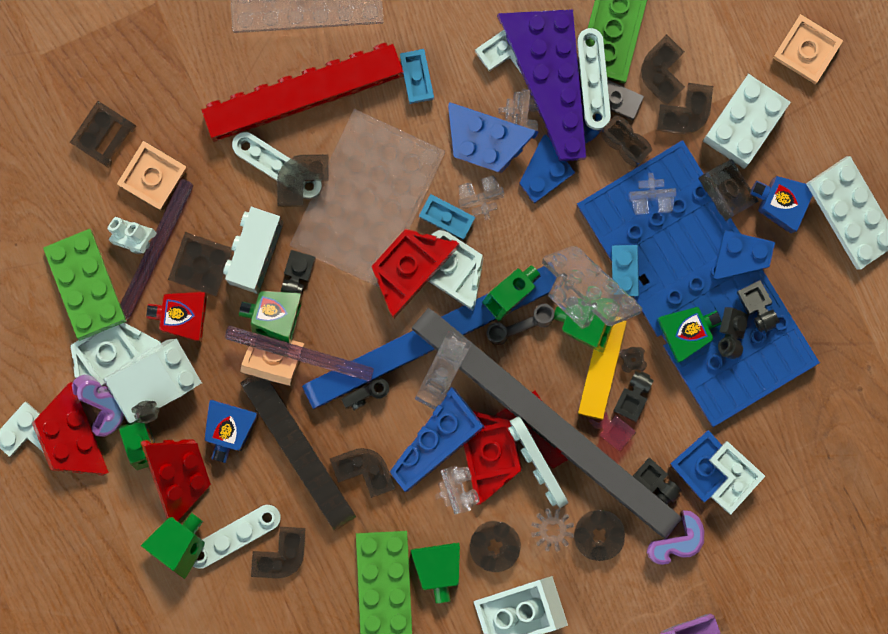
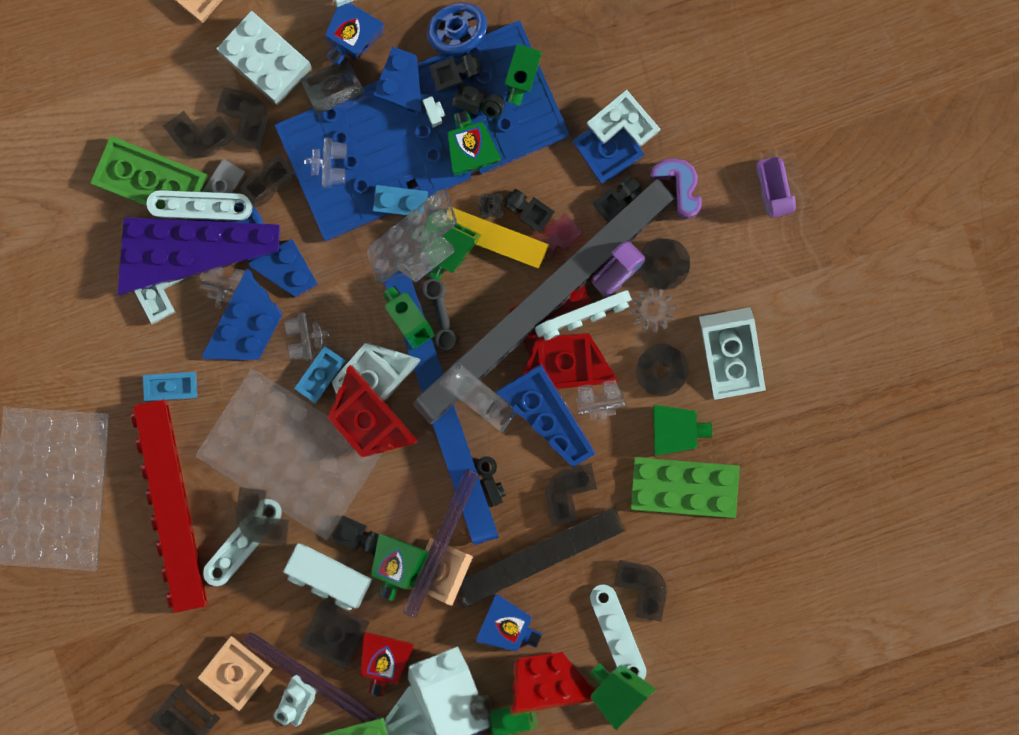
camera: 75 degrees left, 0 degrees up
(587, 490) = (618, 268): none -> medium lavender animal
(717, 291) = (434, 111): none -> light aqua plate
(779, 371) = (525, 60): none -> green torso
(807, 299) = (457, 28): none -> blue plate

